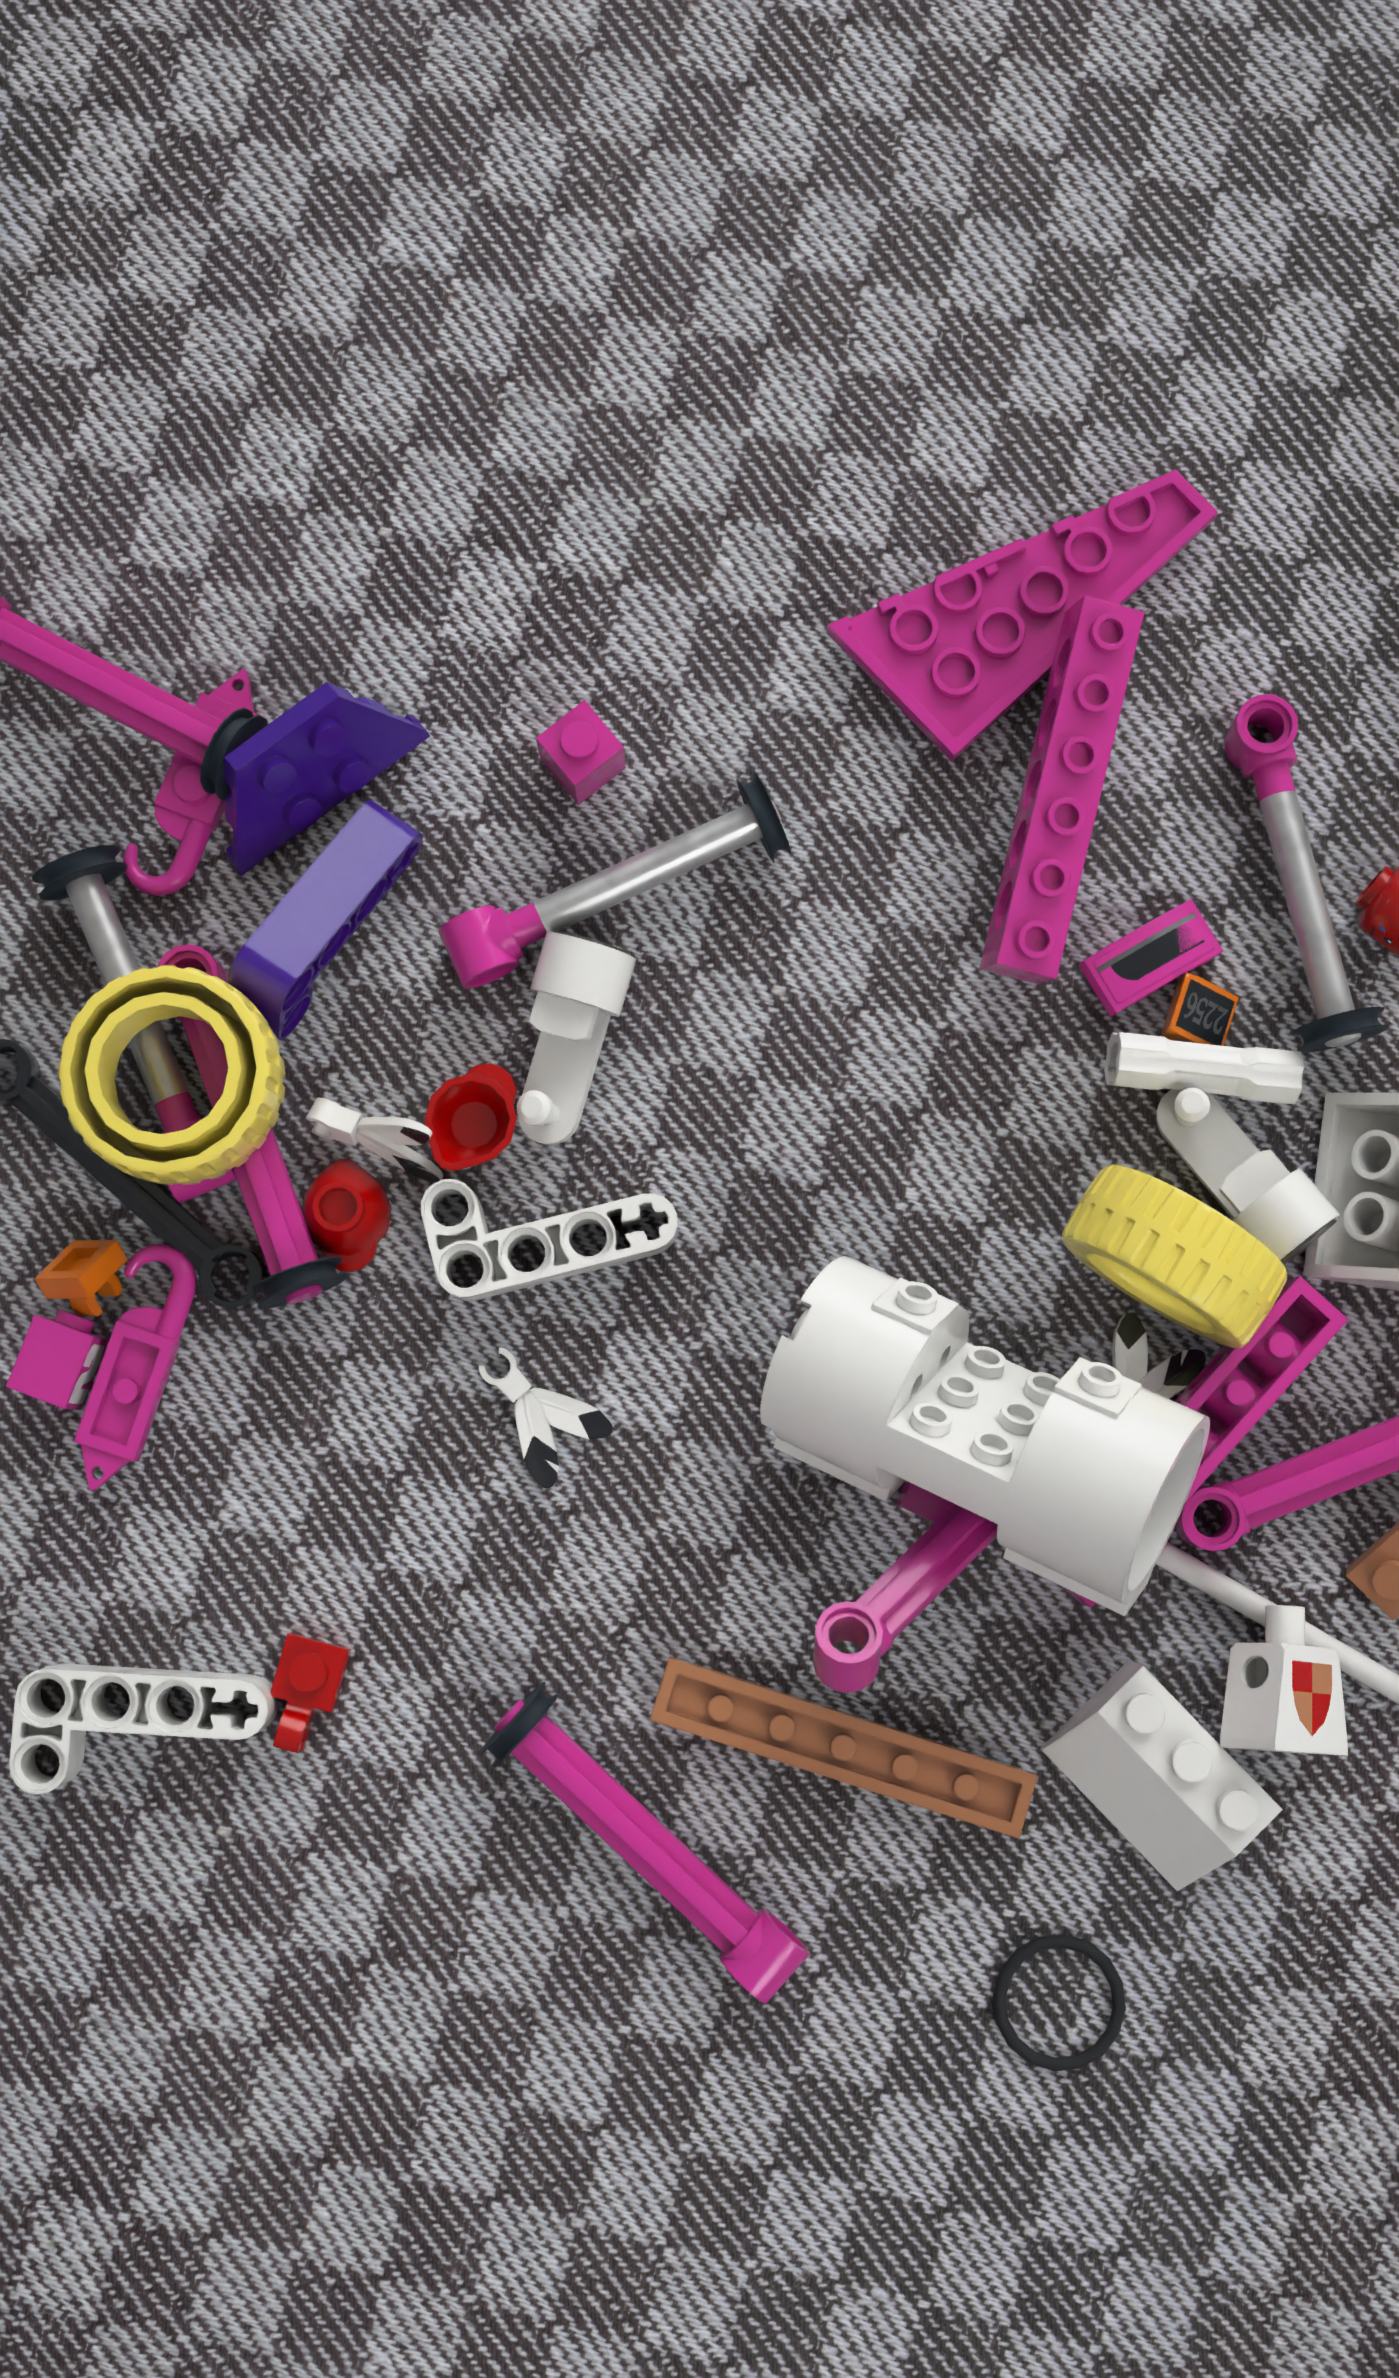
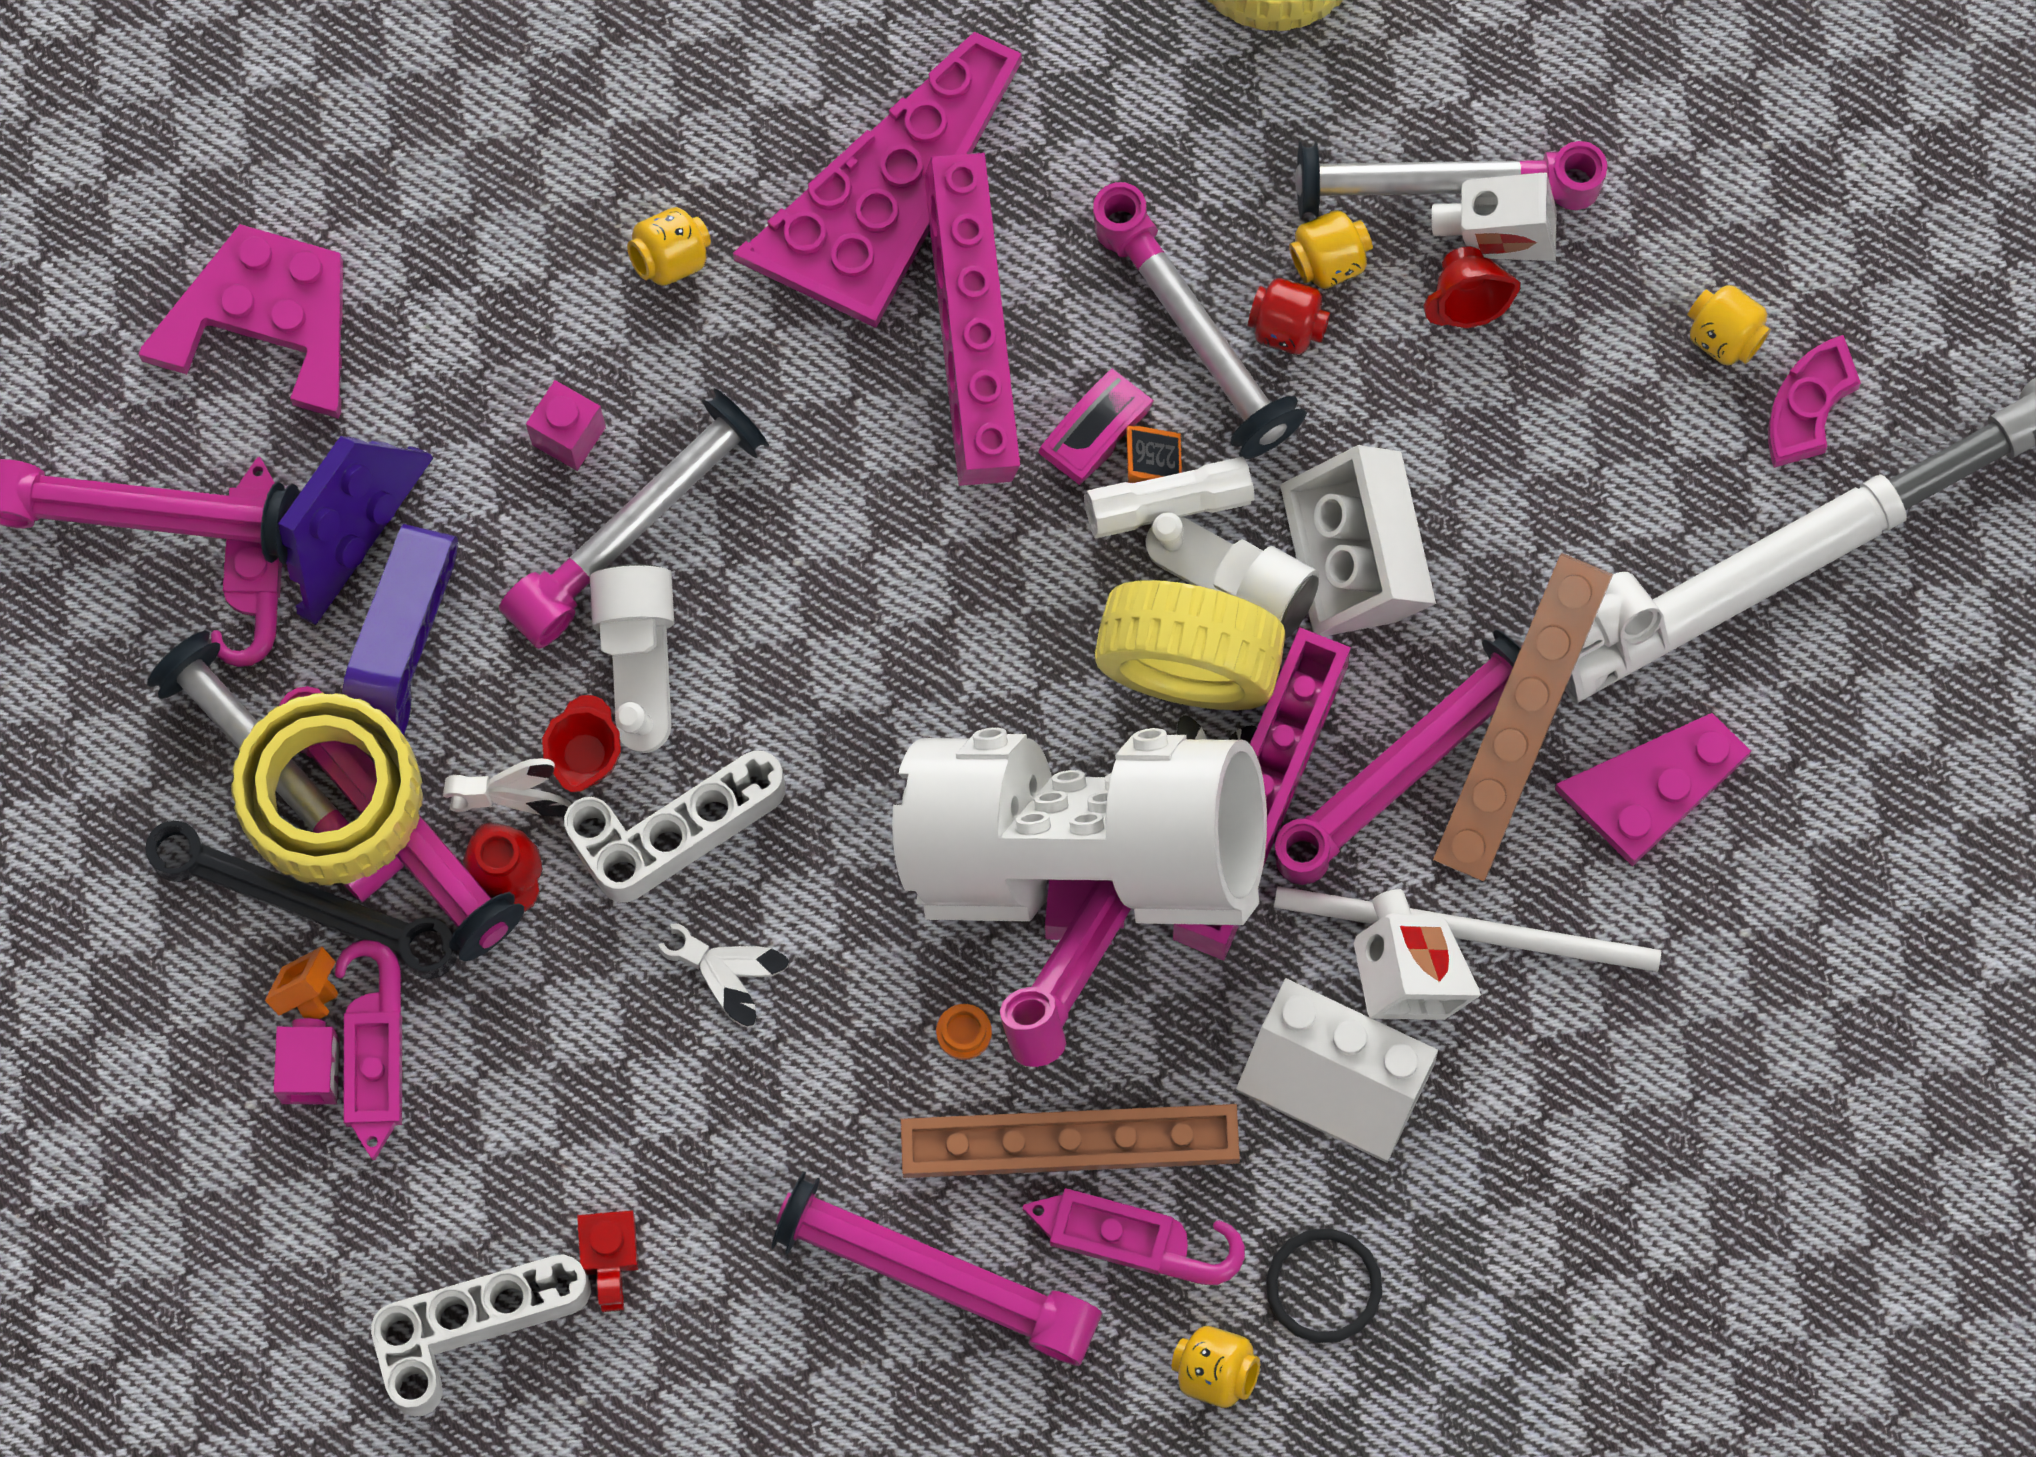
camera: 15 degrees left, 10 degrees down
(321, 492) = (267, 292): none -> dark pink wing
(761, 592) = (668, 246): none -> yellow head
(771, 1580) = (964, 1031): none -> orange plate
(872, 1879) = (1131, 1237): none -> dark pink plate
(911, 2062) = (1216, 1366): none -> yellow head

